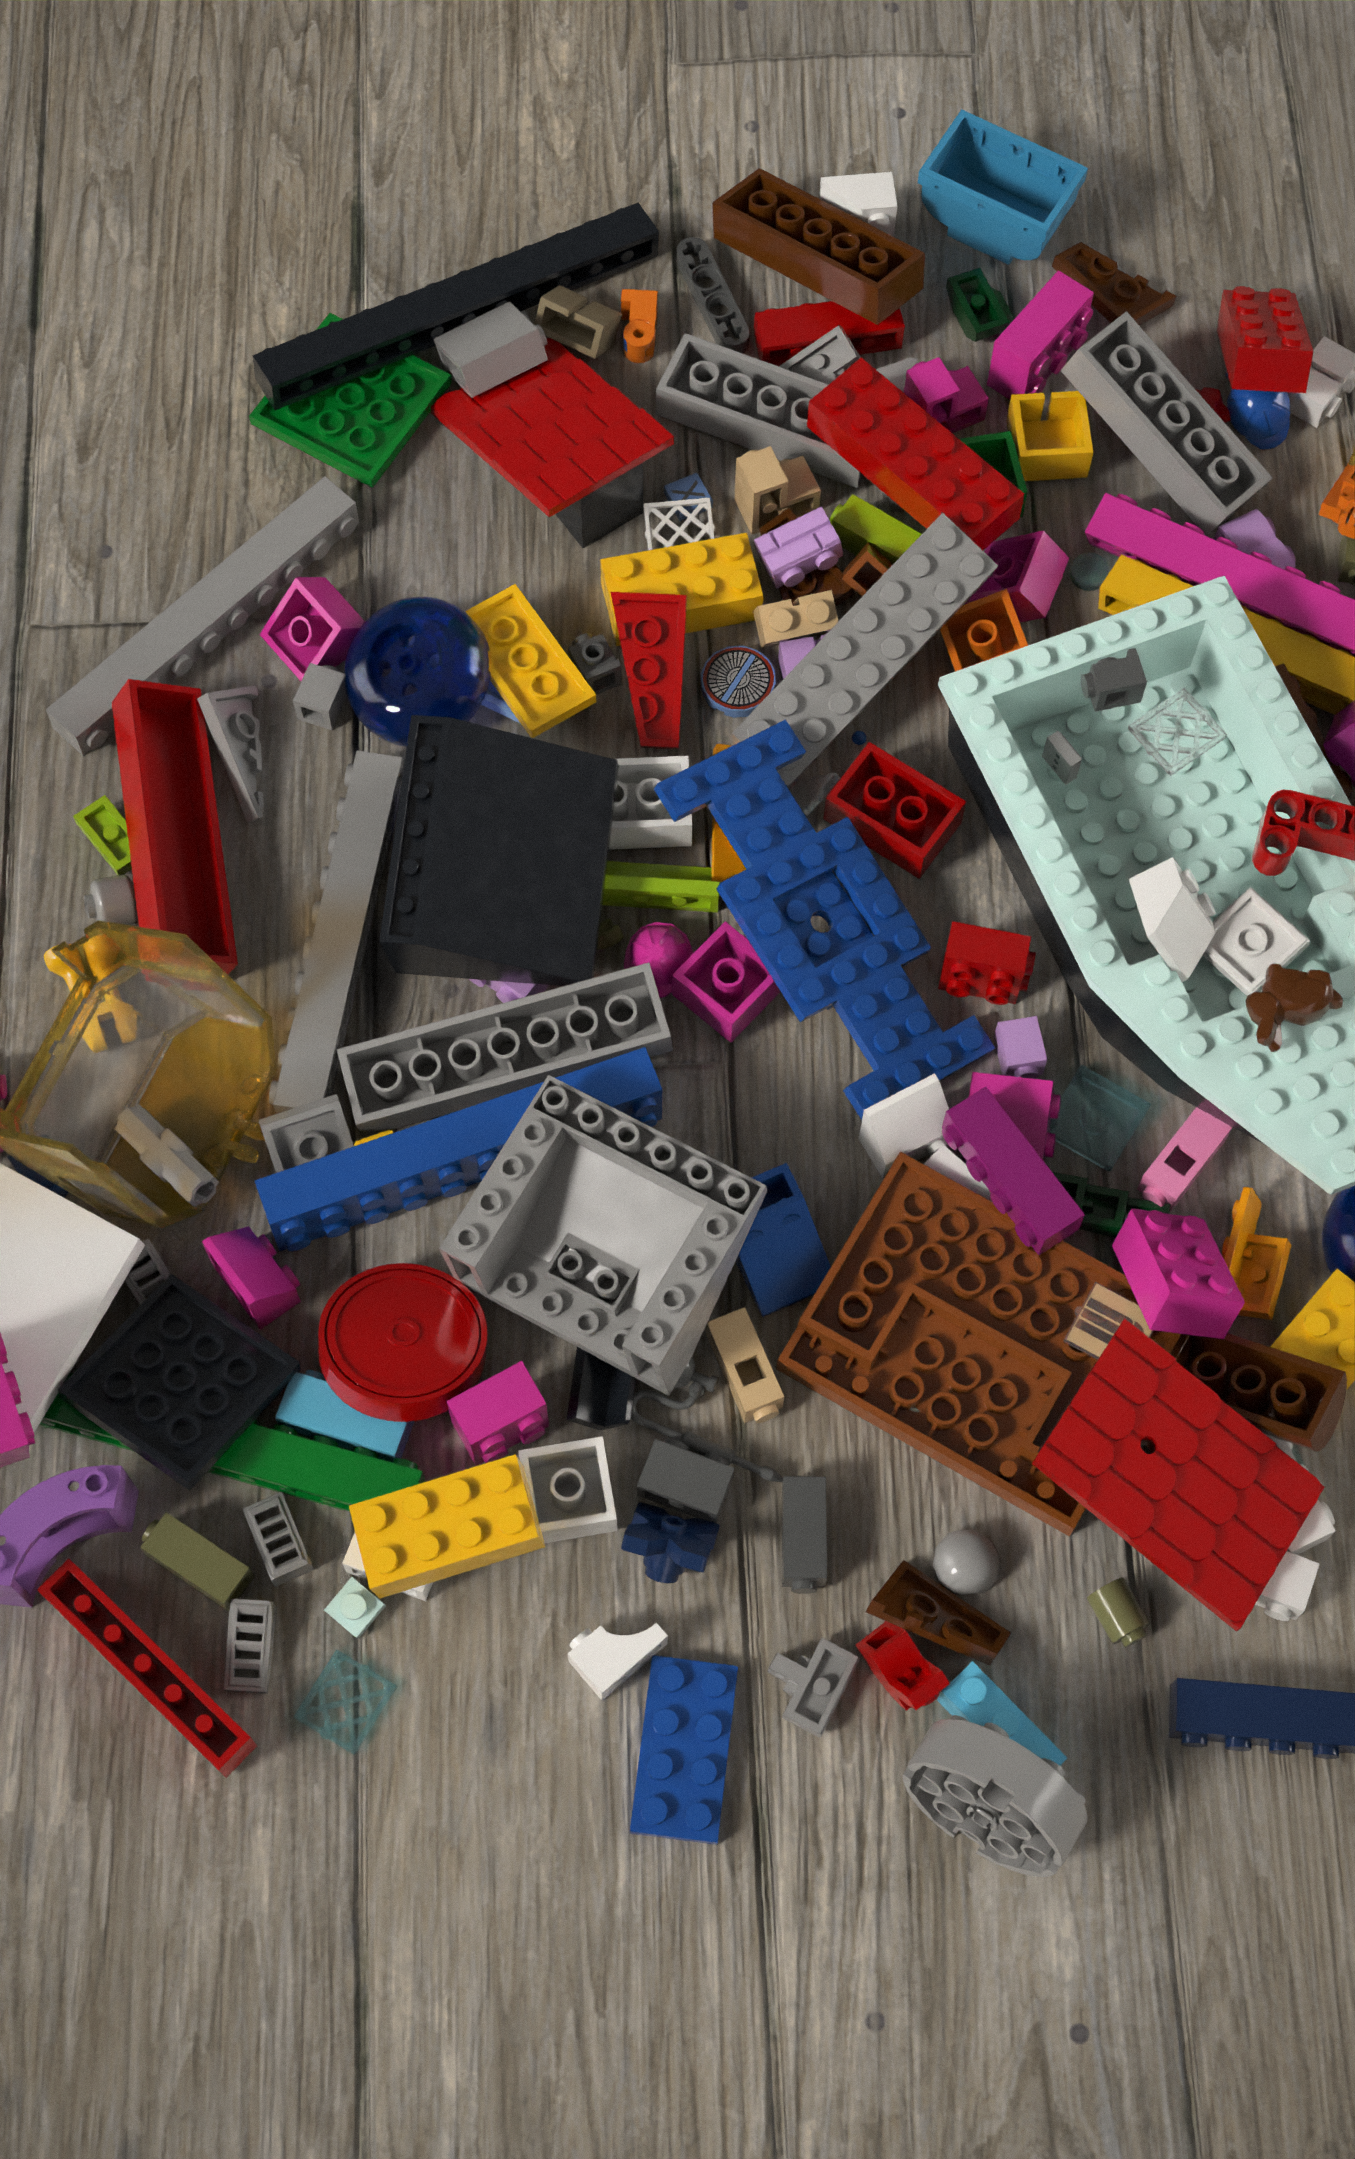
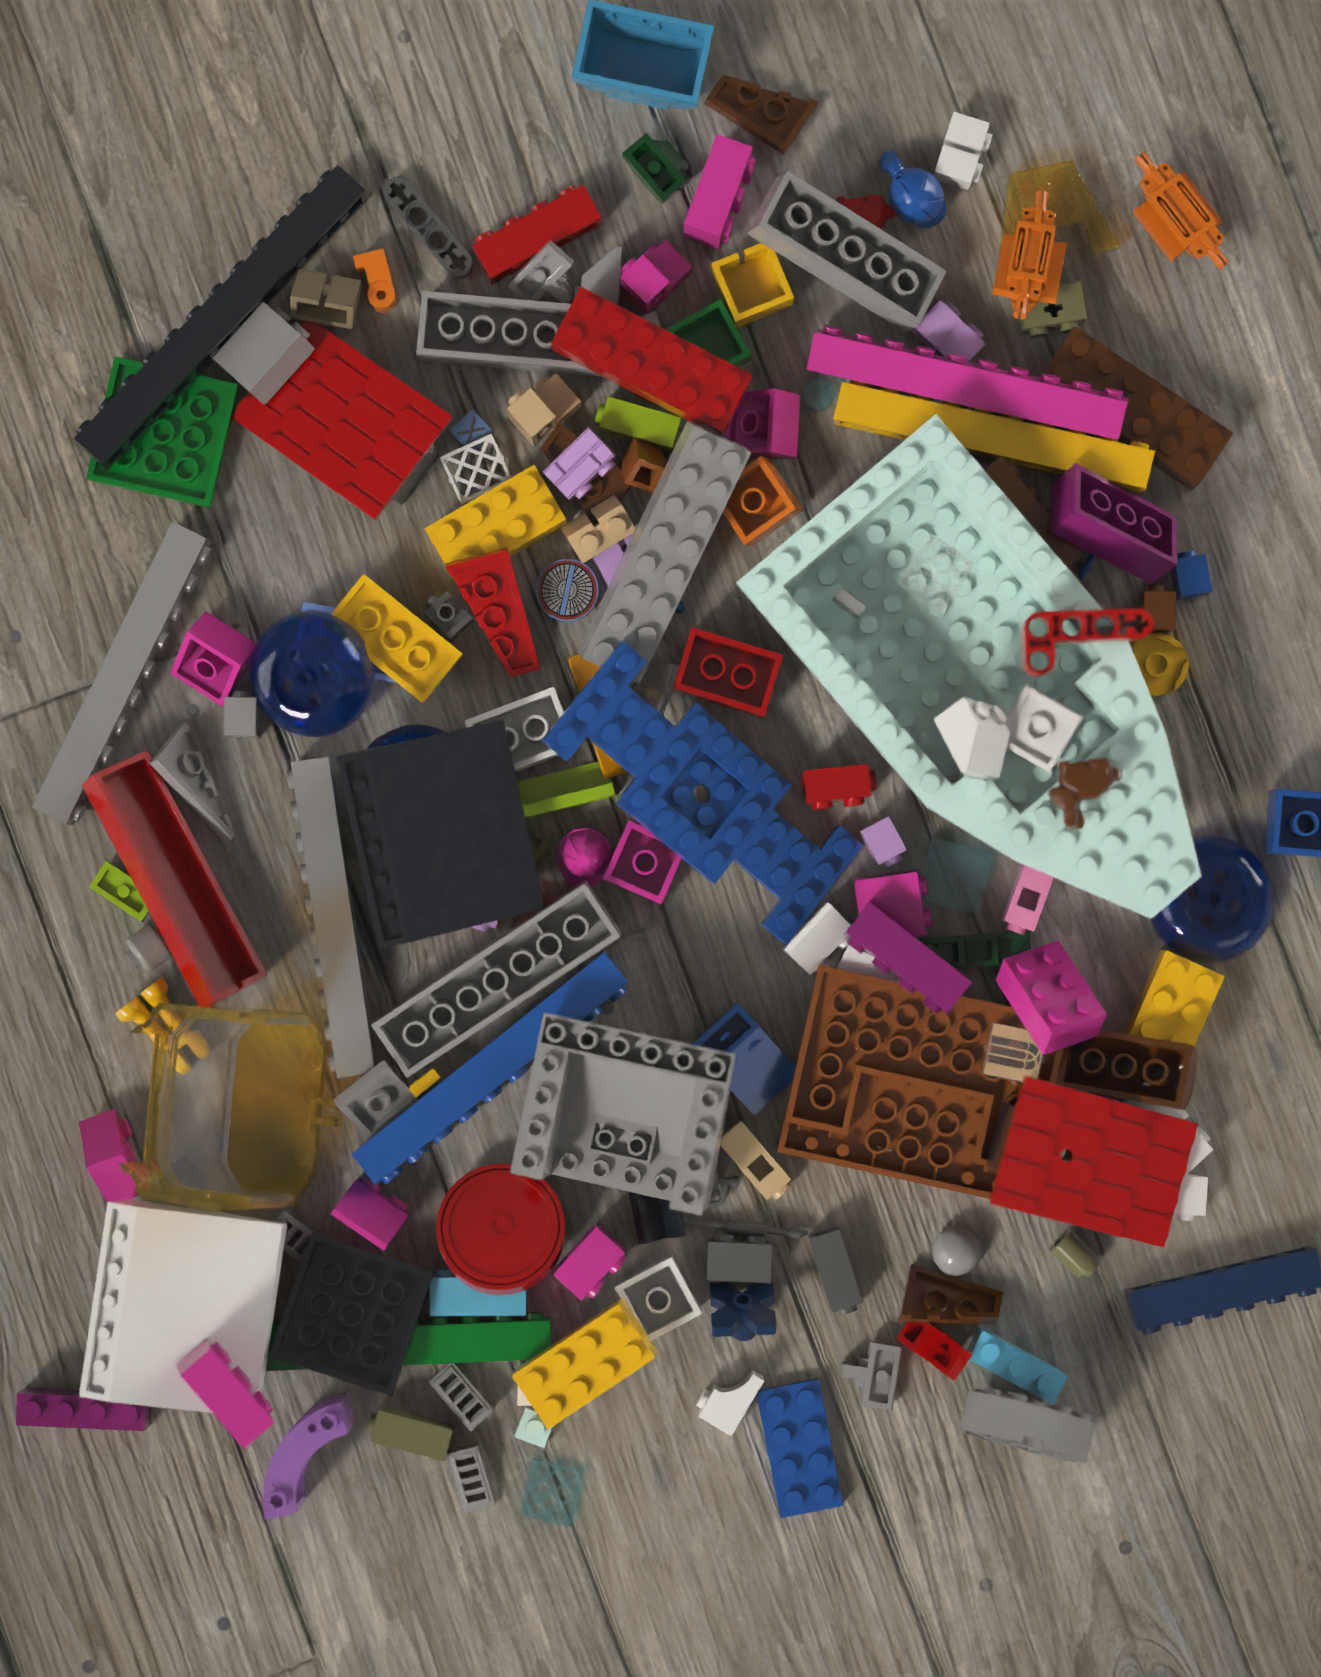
camera: 15 degrees left, 20 degrees up
(147, 1668) = (407, 1521): red brick -> none
(166, 1155) = (272, 1143): light grey piece -> none
(818, 245) = (505, 165): reddish brown brick -> none
(864, 196) = (529, 113): white slope -> none
(1115, 682) = (876, 551): dark grey brick -> none
(1253, 1259) = (1102, 957): light orange bracket -> none
(1264, 340) = (906, 141): red brick -> none

